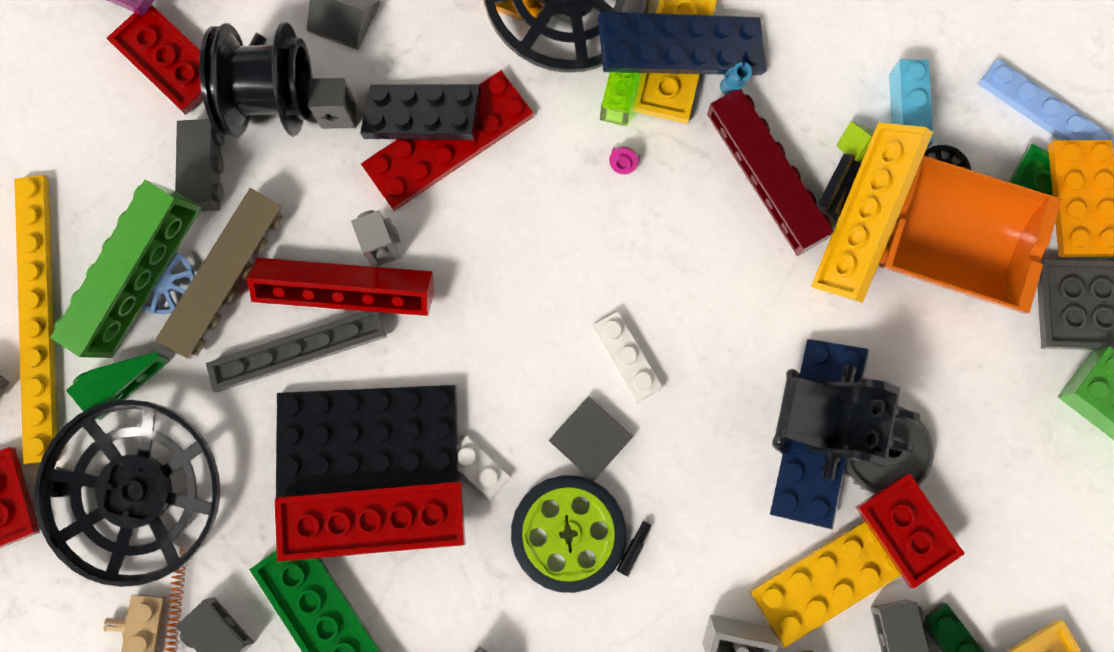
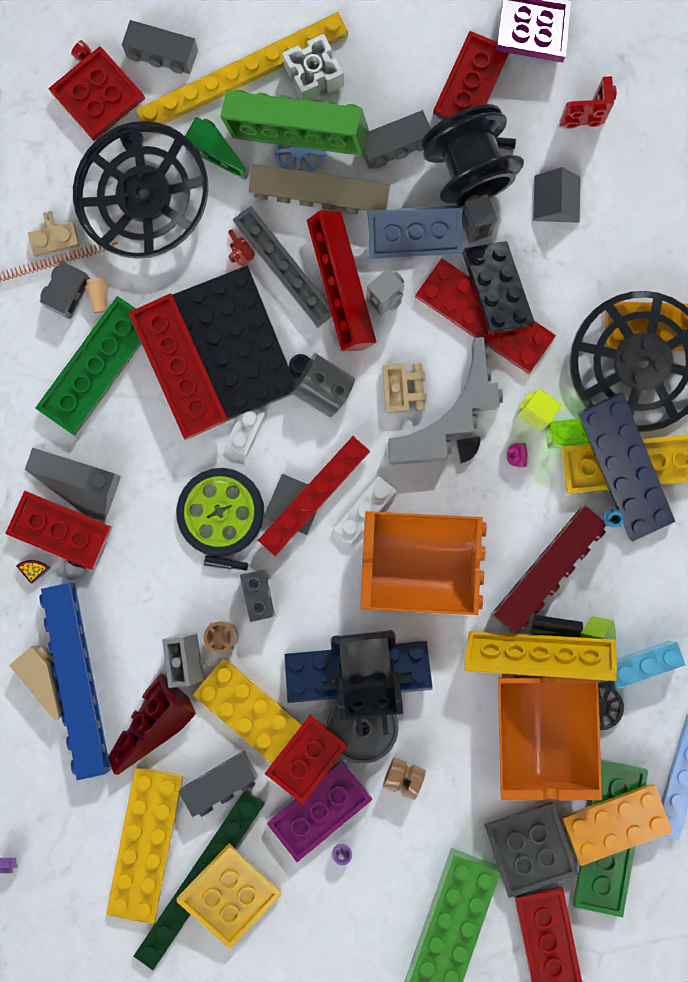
camera: 70 degrees right, 5 degrees up
(69, 228) = (313, 68): none -> white brick
(236, 594) = (97, 293): none -> light nougat cone
(256, 394) = (241, 250): none -> clear red piece
(317, 181) = (415, 231): none -> sand blue plate
(424, 372) = (298, 364): none -> black plate
(461, 352) = (323, 385): none -> dark grey brick
(494, 268) = (396, 388): none -> tan plate
(537, 181) = (477, 395): none -> light grey arch
(582, 114) = (538, 409): none -> neon yellow brick
(591, 411) = (314, 496): none -> red plate
(596, 213) = (467, 448): none -> black tile
(689, 521) = (257, 595): none -> dark grey brick
(719, 310) = (422, 563): none -> orange cylinder
(725, 586) = (220, 636): none -> medium nougat piece
(965, 419) = (395, 777): none -> medium nougat wheel
(989, 562) = (325, 810): none -> magenta plate
(1033, 522) = (346, 853): none -> medium lavender hinge

